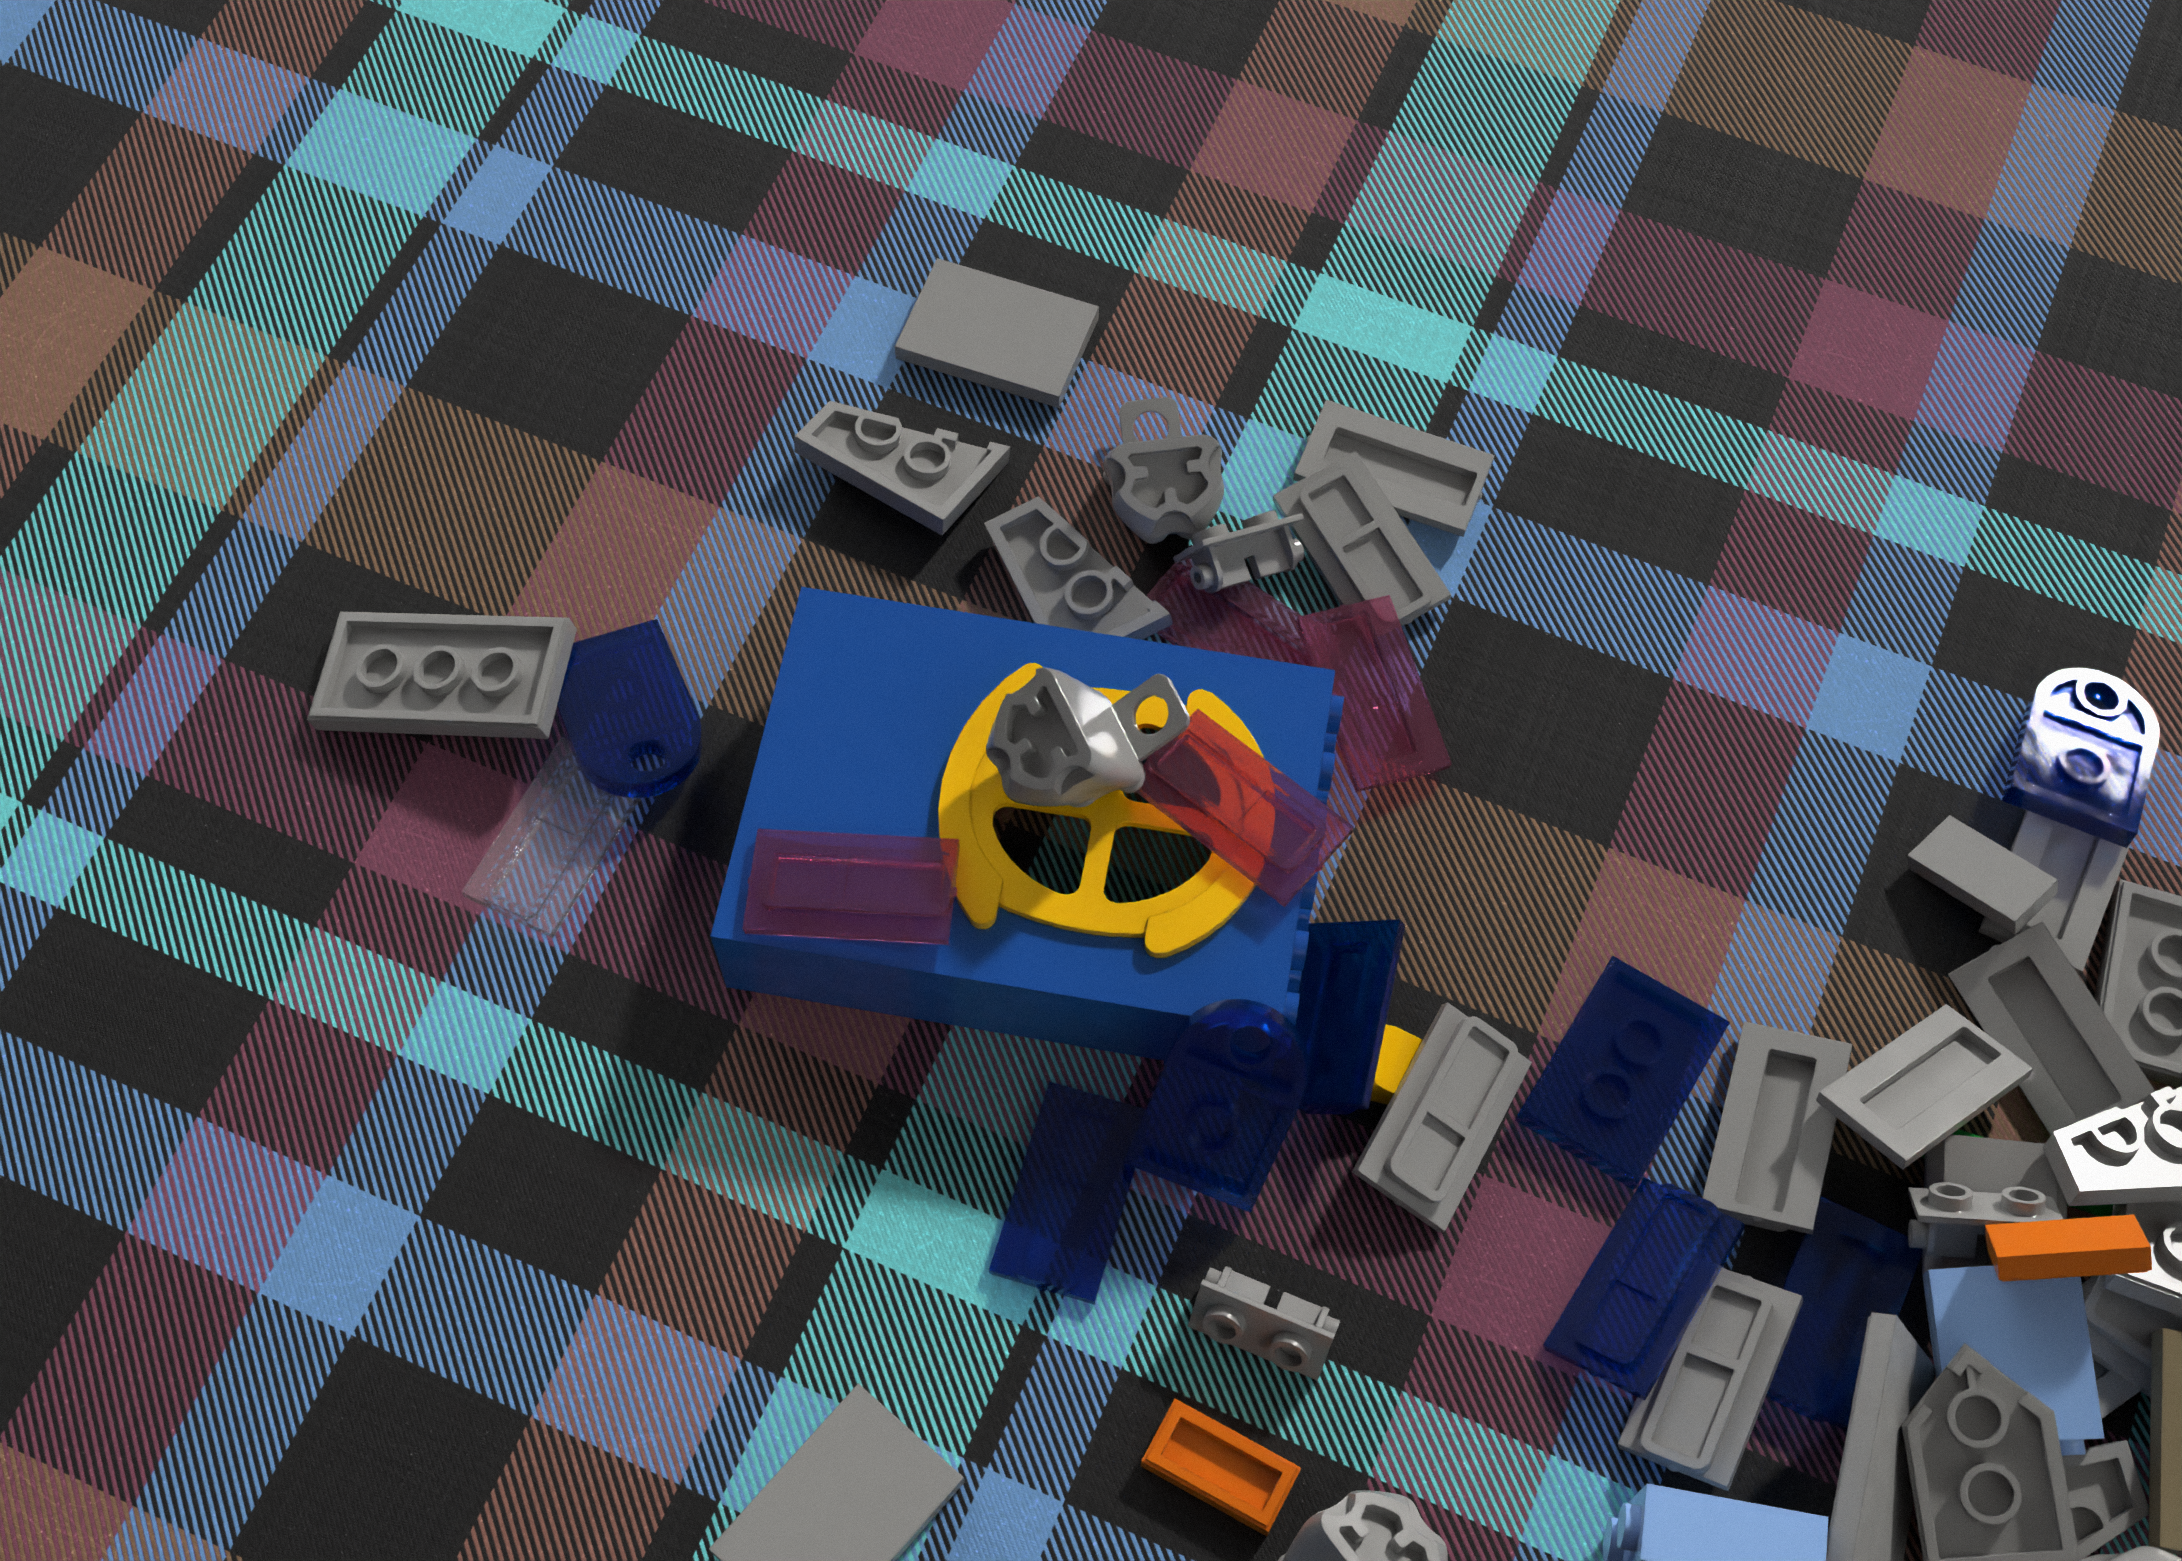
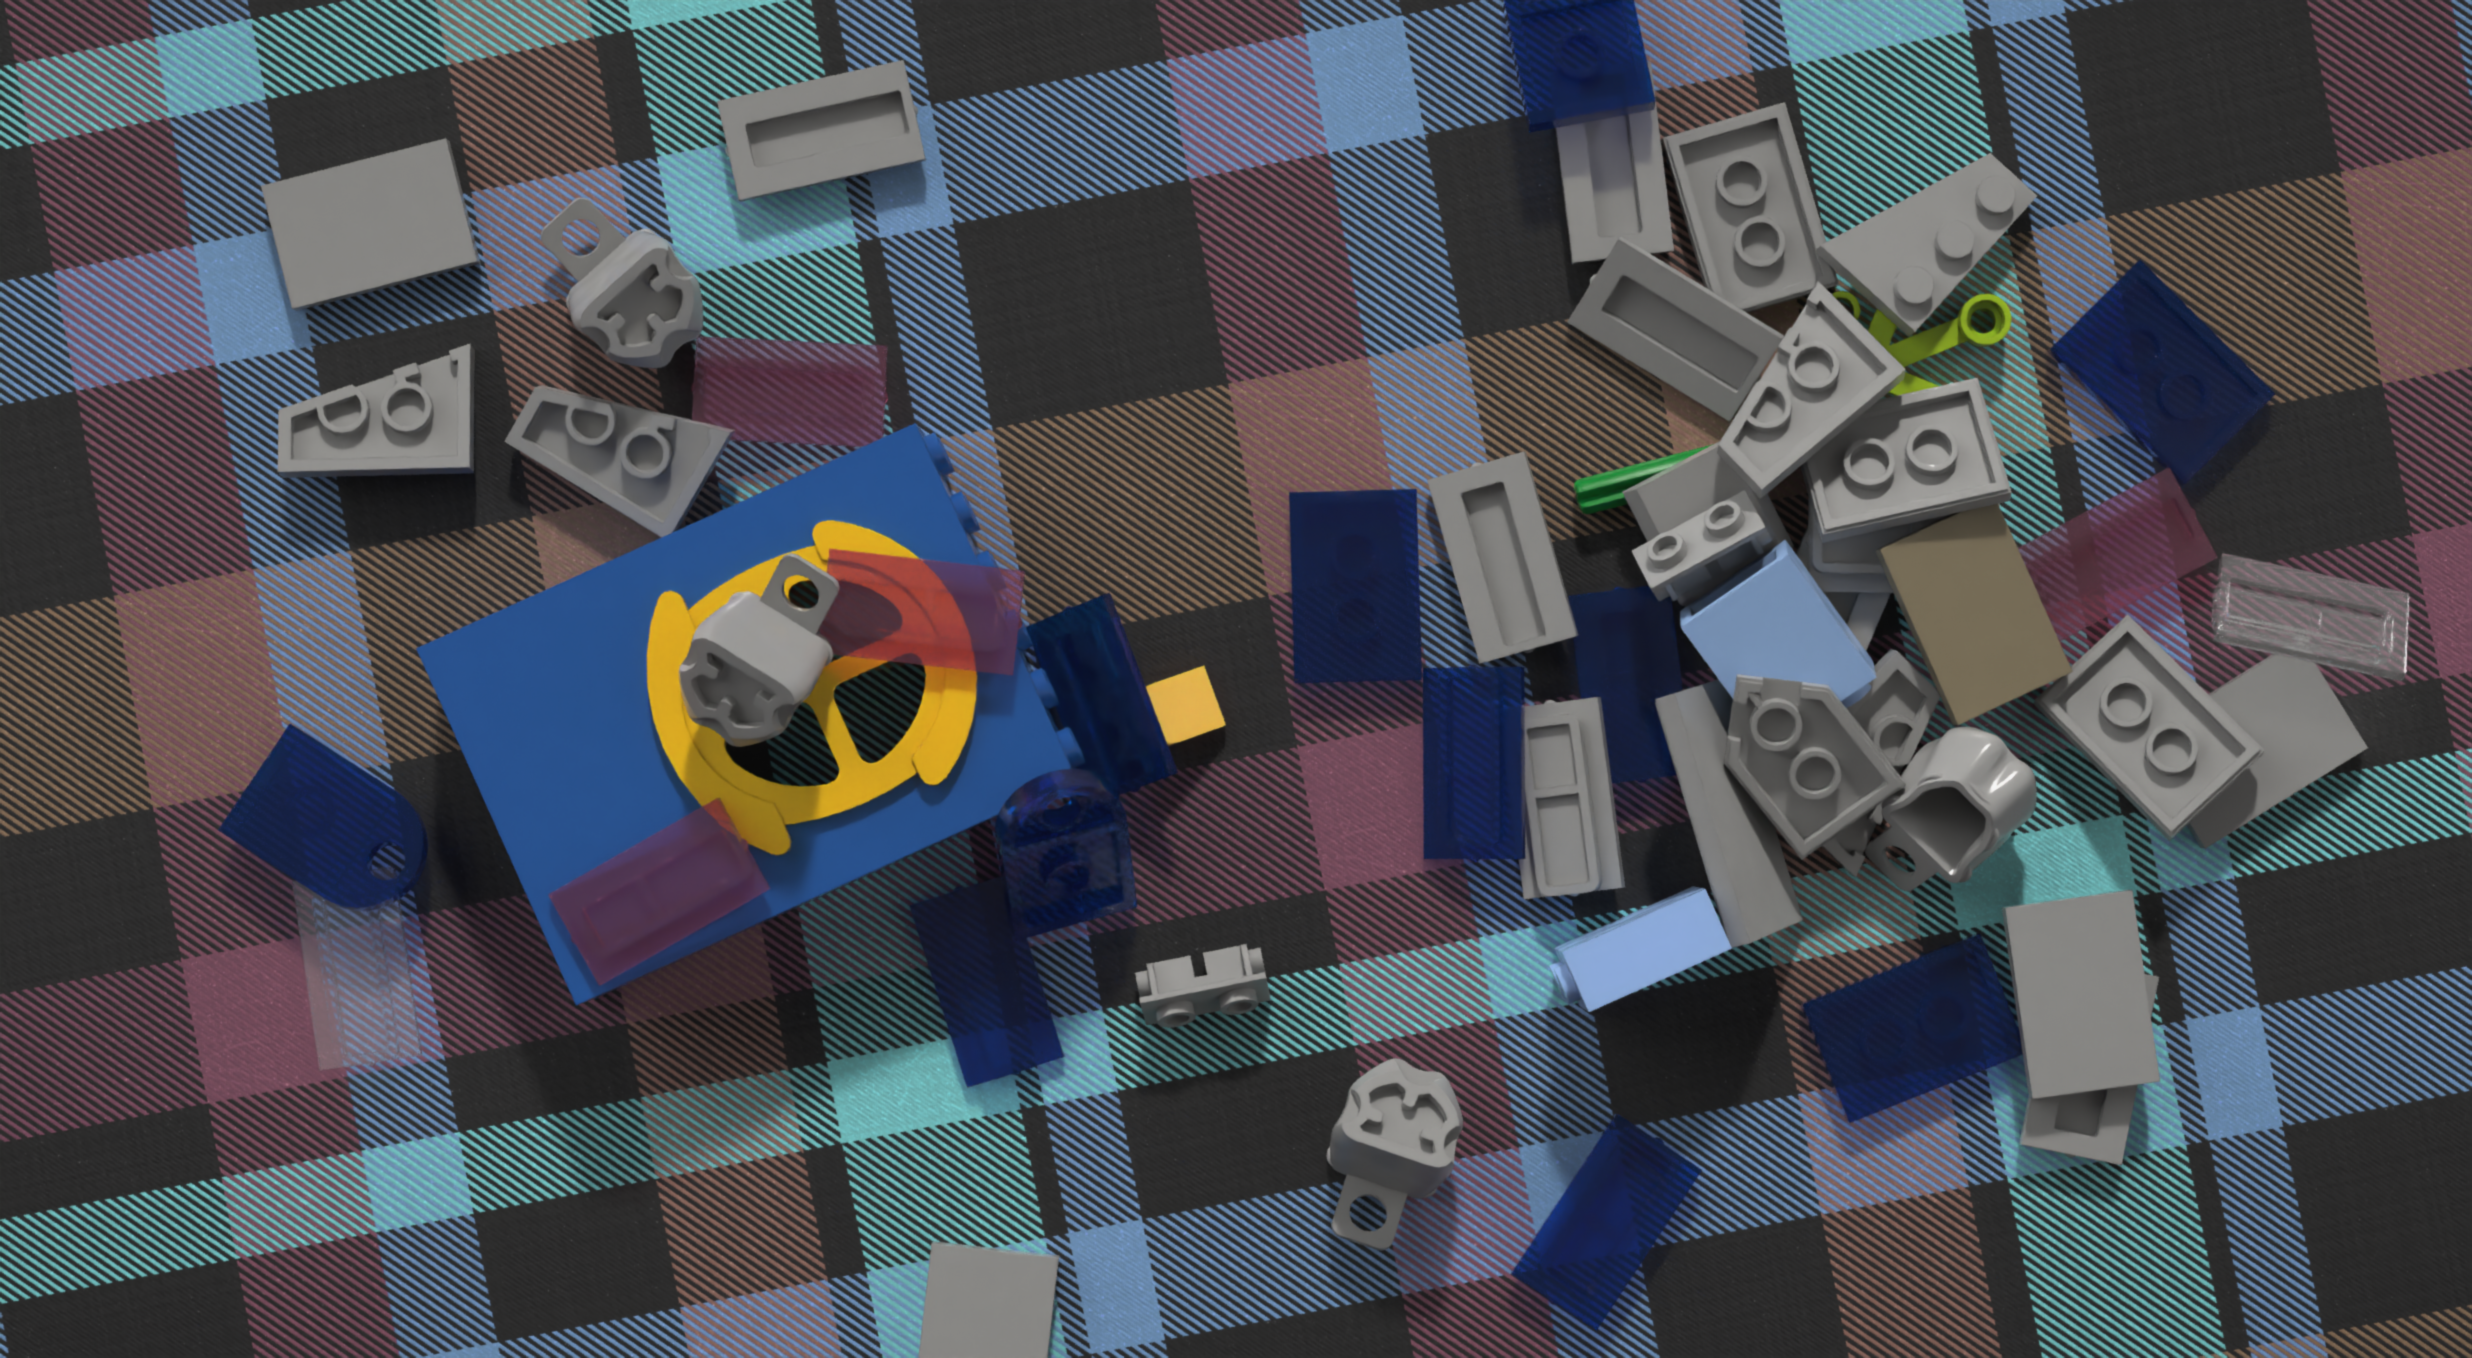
camera: 30 degrees left, 25 degrees up
(443, 674) = (152, 901): light grey tile -> none
(1220, 1467) = (1240, 1117): orange tile -> none
(1221, 555) = (732, 337): light grey hinge -> none
(1360, 539) = (844, 236): light grey piece -> none
(1386, 715) = (947, 381): clear pink piece -> none
(1443, 1116) = (1237, 727): light grey piece -> none
(1924, 1085) = (1599, 452): light grey piece -> none
(1982, 874) = (1548, 216): light grey tile -> none
(2068, 1248) = (1773, 553): orange tile -> none

